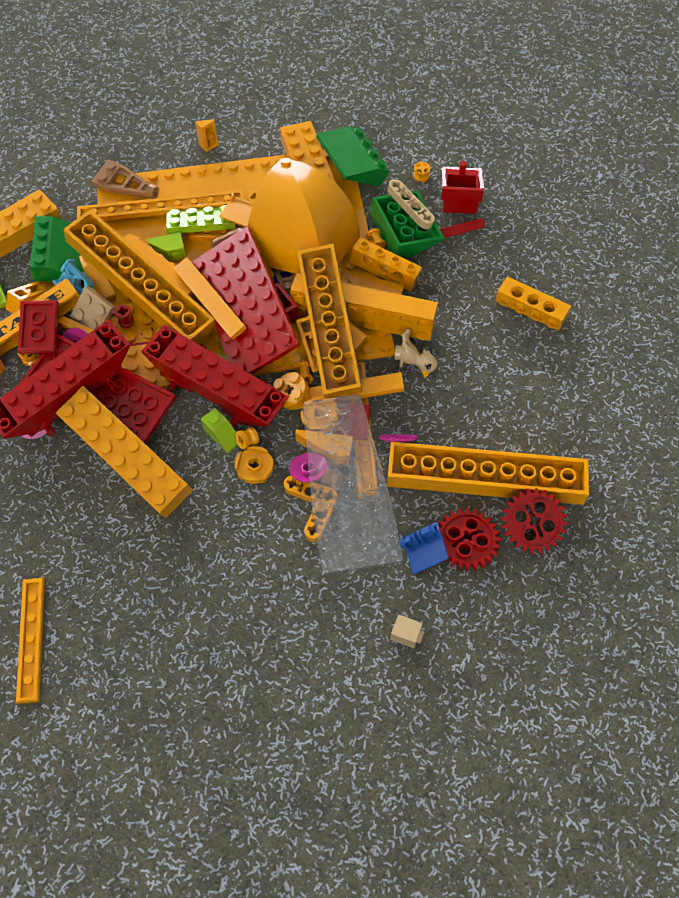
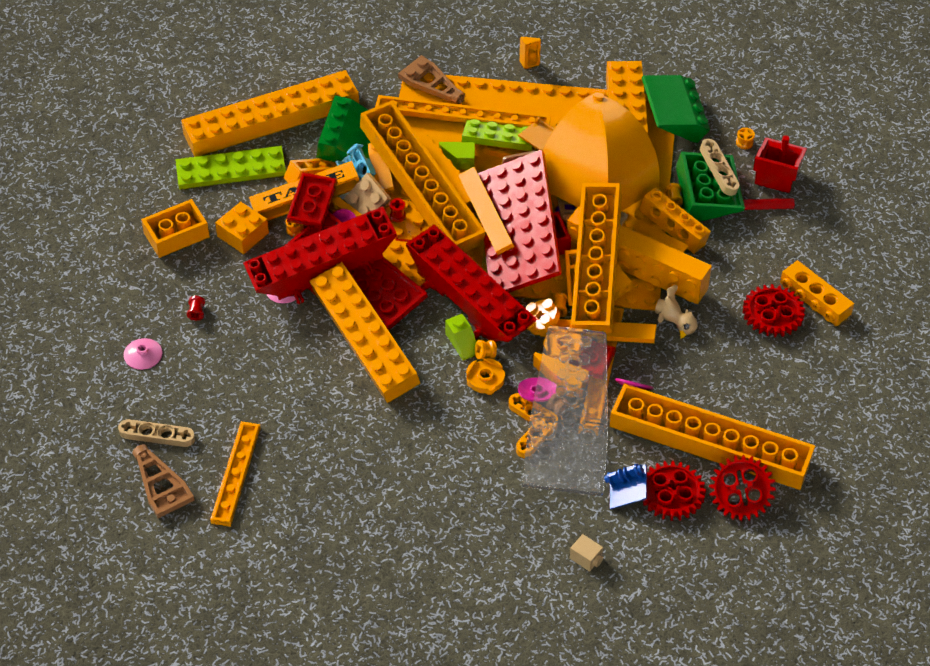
camera: 15 degrees right, 10 degrees down
(499, 334) = (773, 310): none -> red gear

